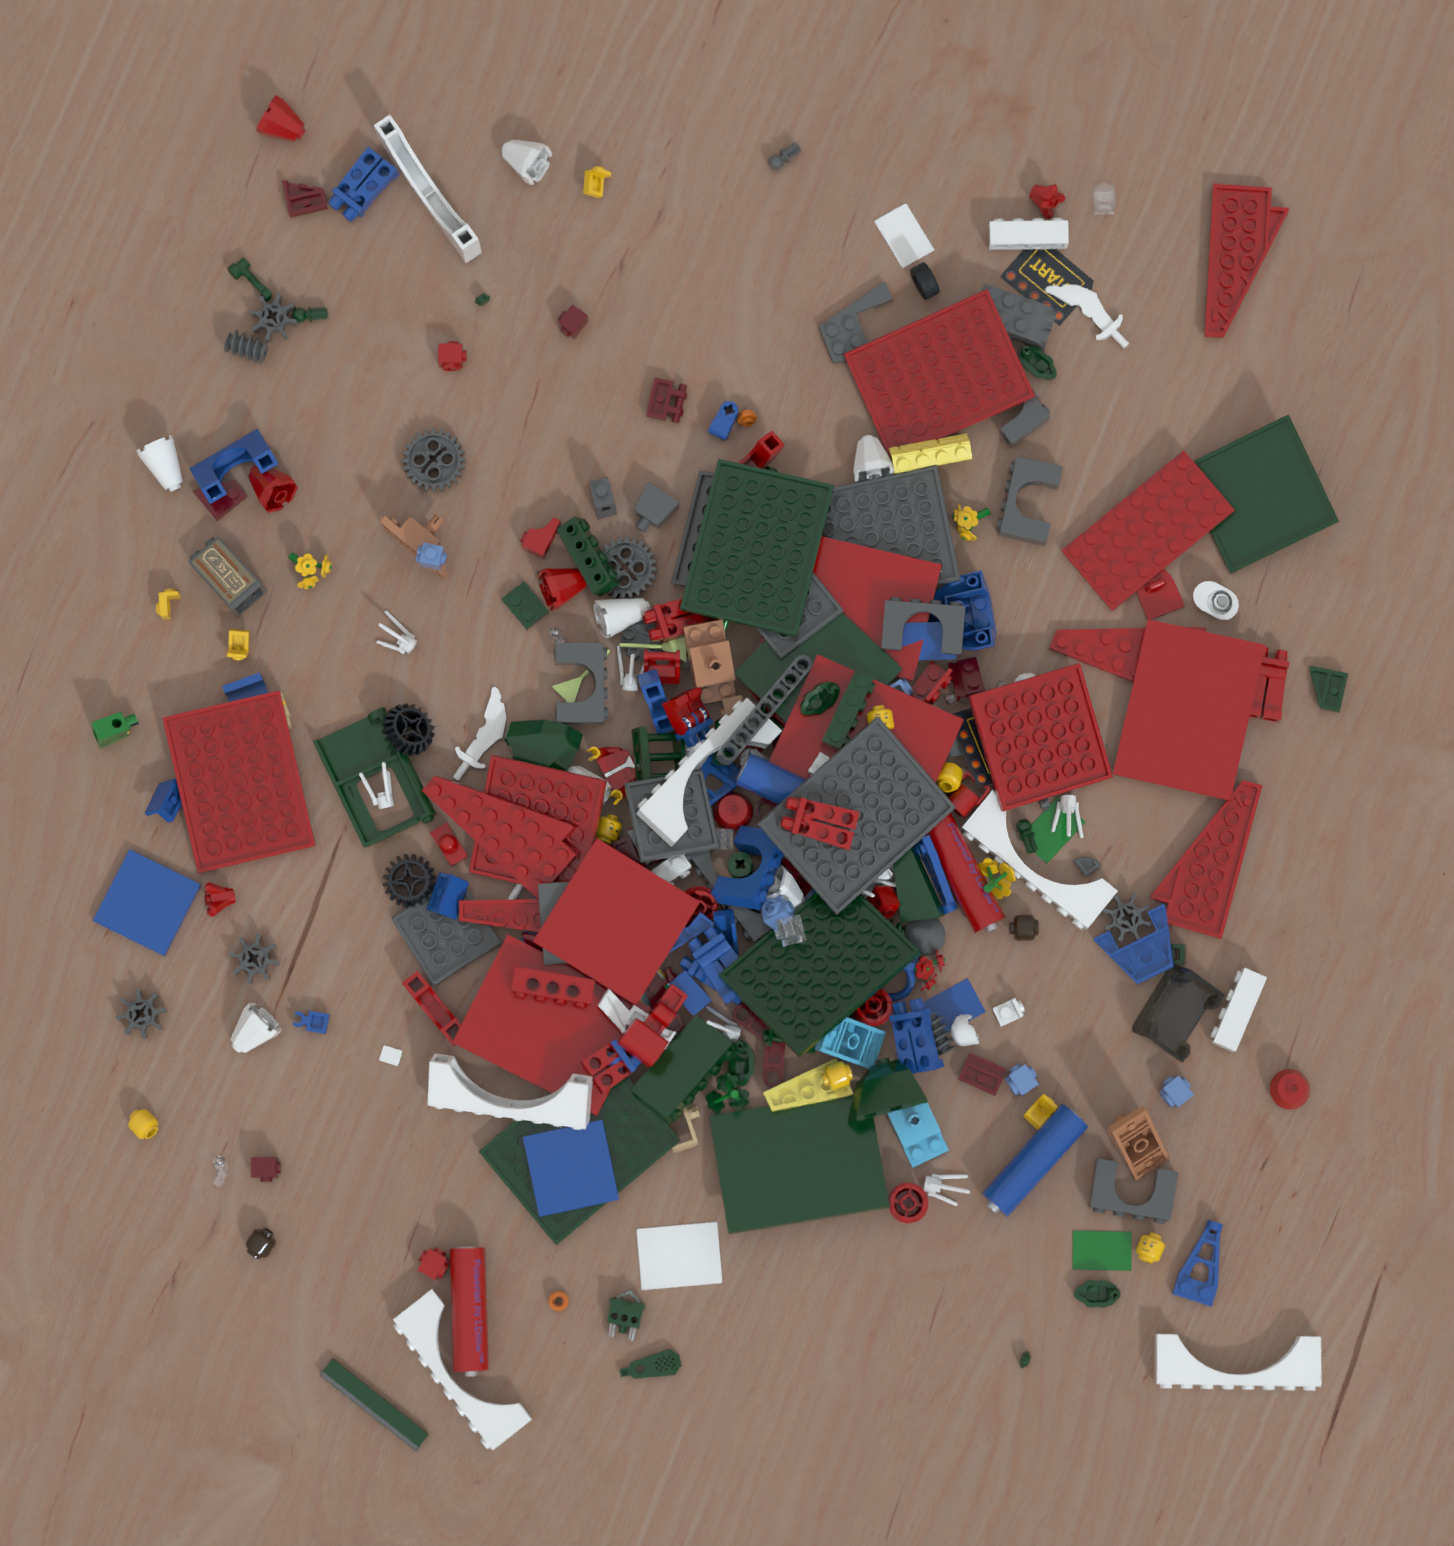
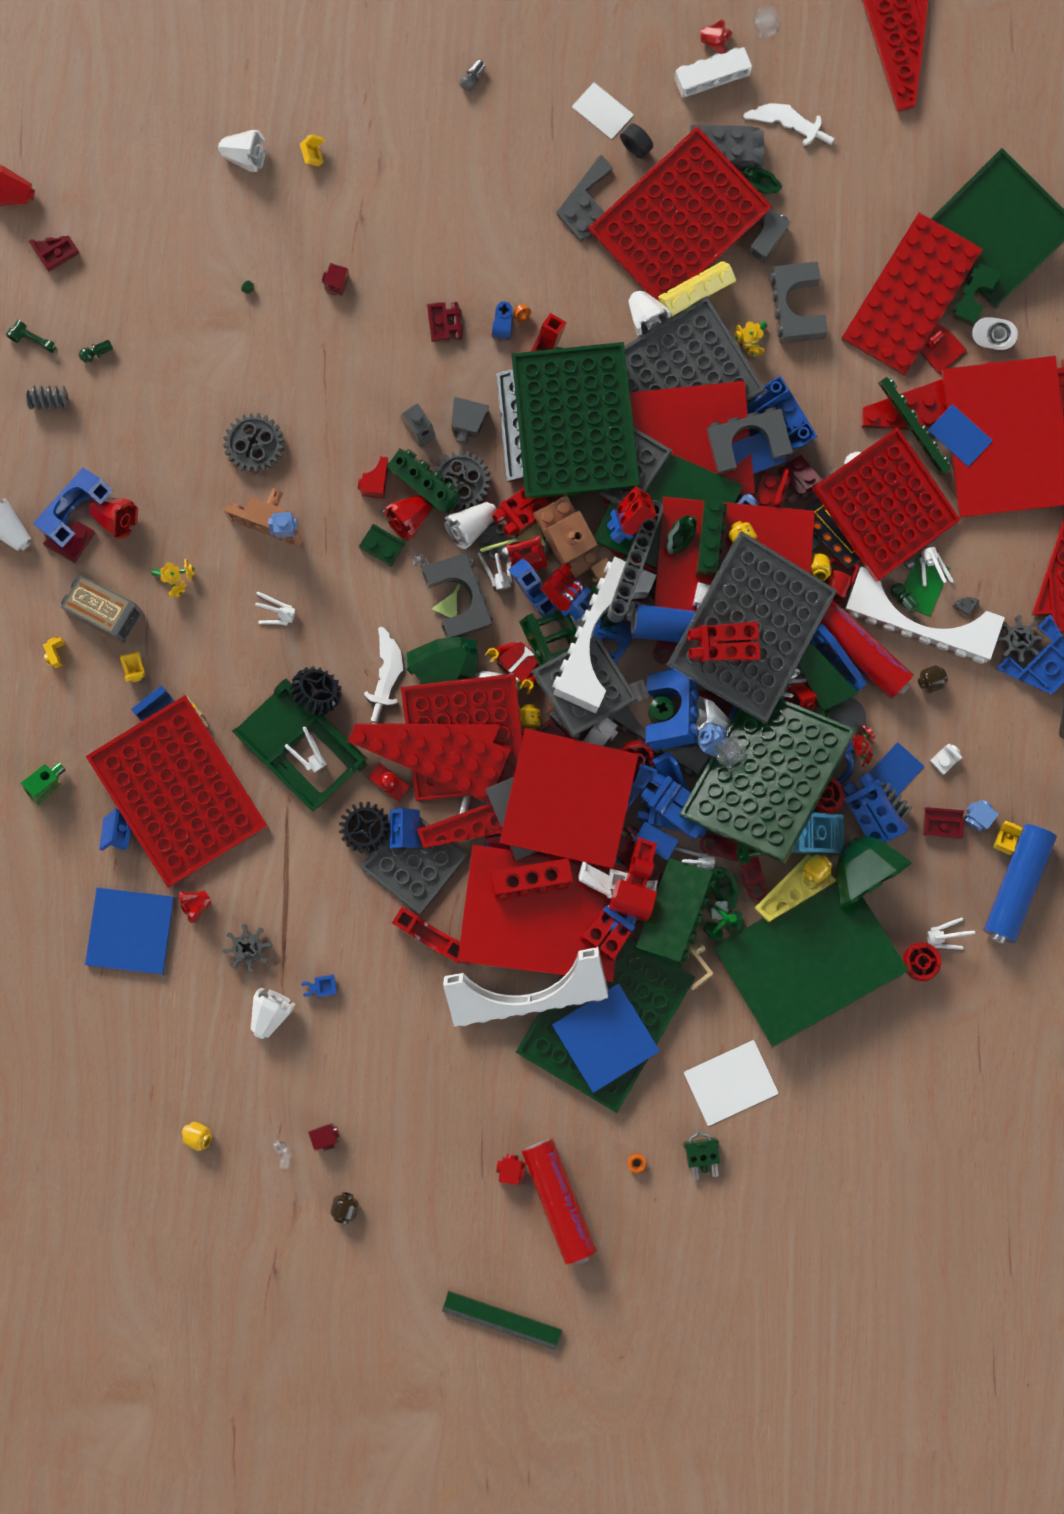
camera: 25 degrees left, 0 degrees up
(135, 1020) = (151, 1032): dark grey gear -> none
(281, 314) = (59, 370): dark grey gear -> none
(362, 184) = (103, 220): blue hips -> none
(390, 1055) = (403, 992): white sticker -> none
(449, 221) = (202, 231): white arch -> none
(451, 356) = (237, 345): red brick -> none
(491, 1420) = (616, 1295): white arch -> none
(650, 1365) = (742, 1193): dark green piece -> none
(733, 811) = (635, 664): red cone -> none
(776, 662) = (631, 514): none -> red hips
(918, 1133) = (907, 897): medium azure brick -> none
(963, 1032) = (915, 790): white hair -> none
(1001, 885) = (896, 648): yellow plant -> none
(1042, 268) = (732, 100): black sticker -> none
(1097, 658) = (919, 431): none -> dark green plate
(1141, 692) = (960, 435): none -> blue sticker
(1223, 540) = (968, 309): none -> dark green arch

